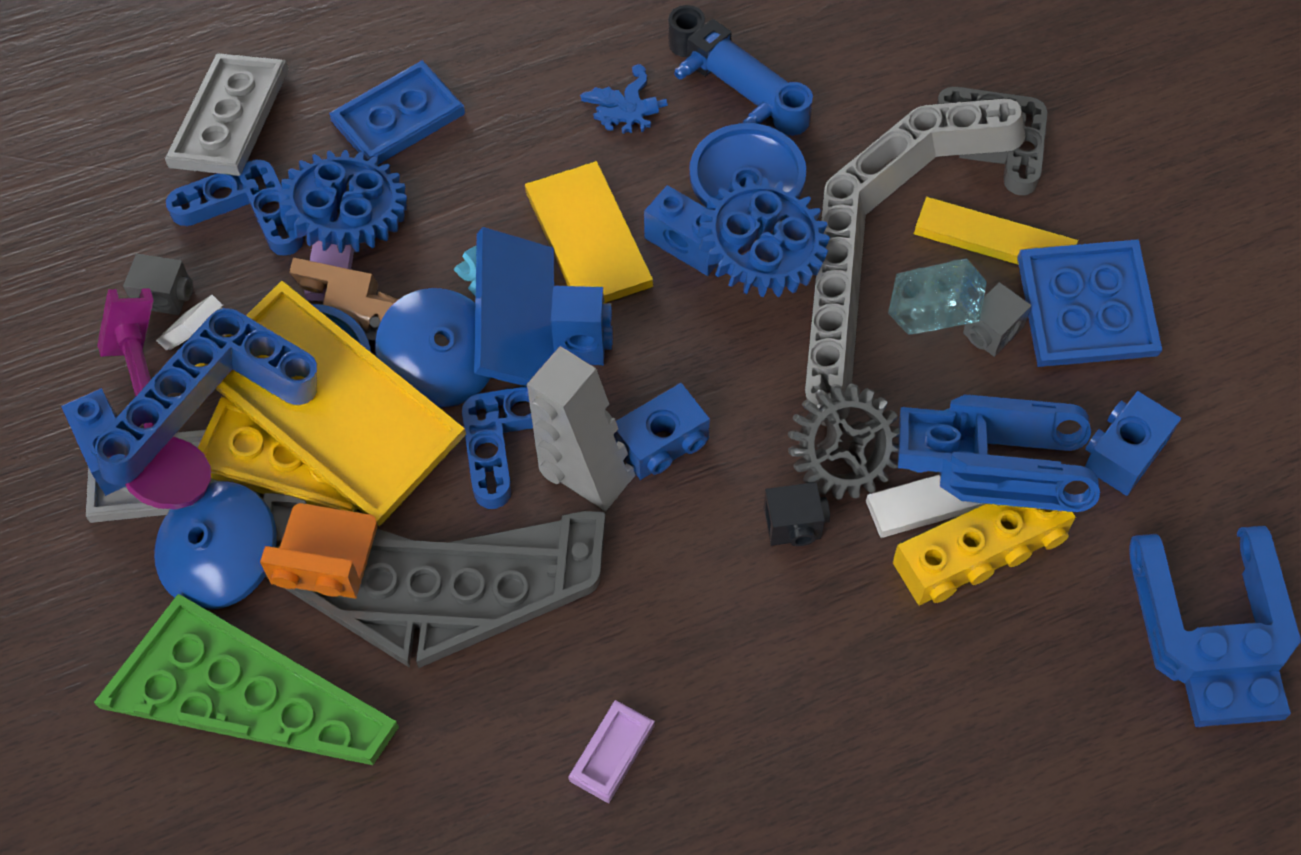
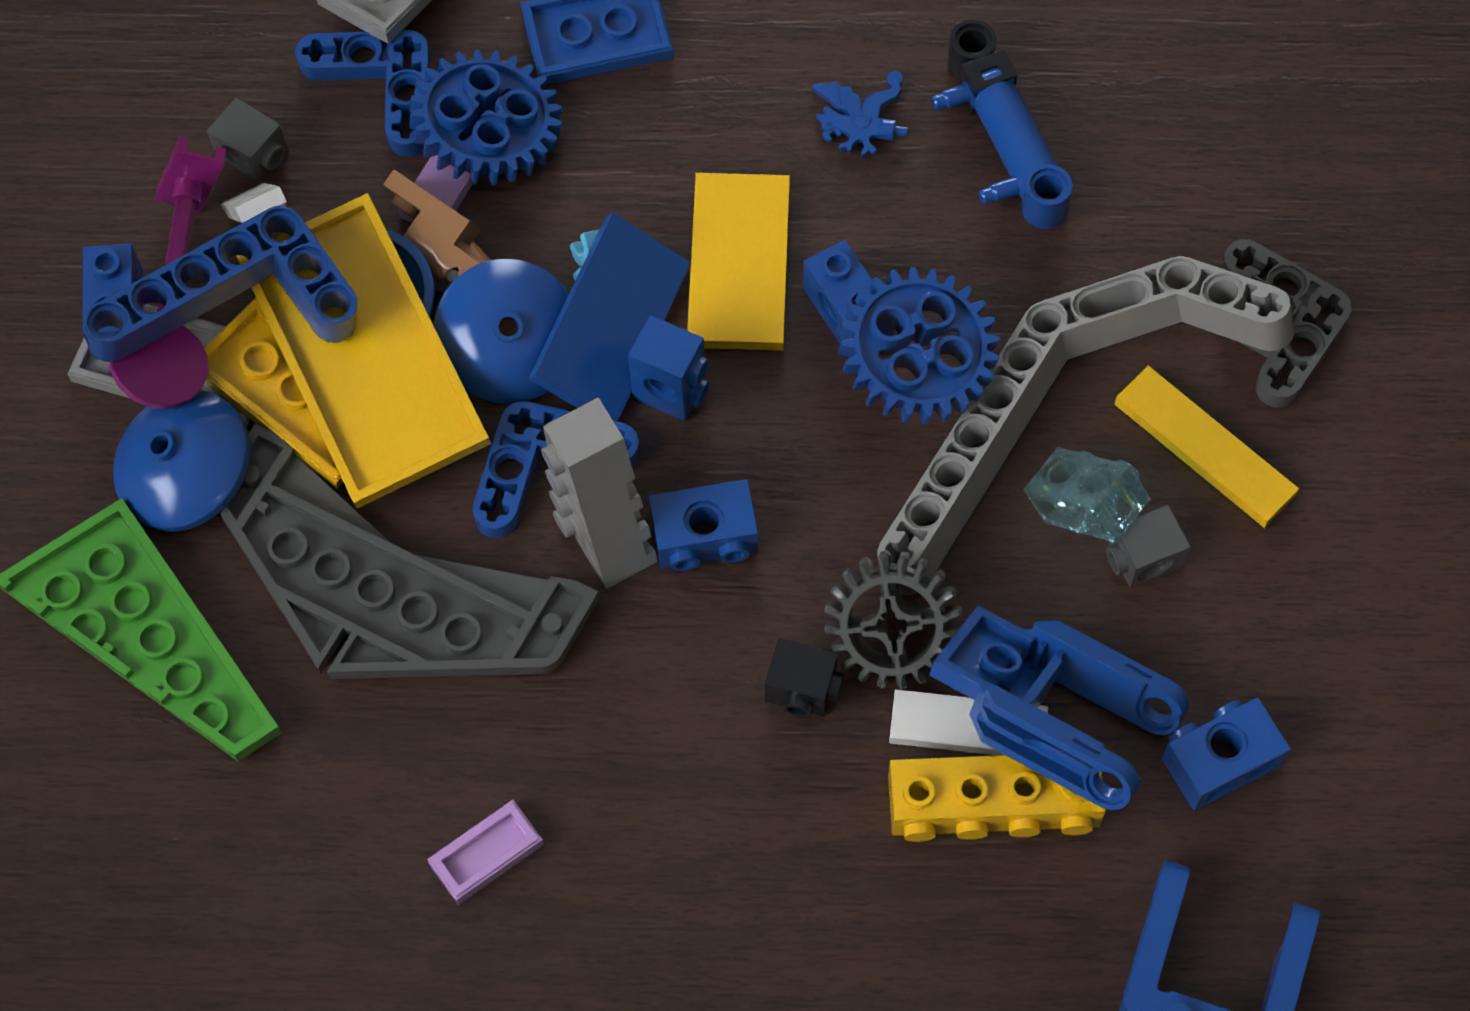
camera: 25 degrees right, 5 degrees up
(322, 551) = (281, 513): orange bracket -> none
(745, 152) = (955, 235): blue dish -> none
(1089, 303) = (1266, 570): blue plate -> none

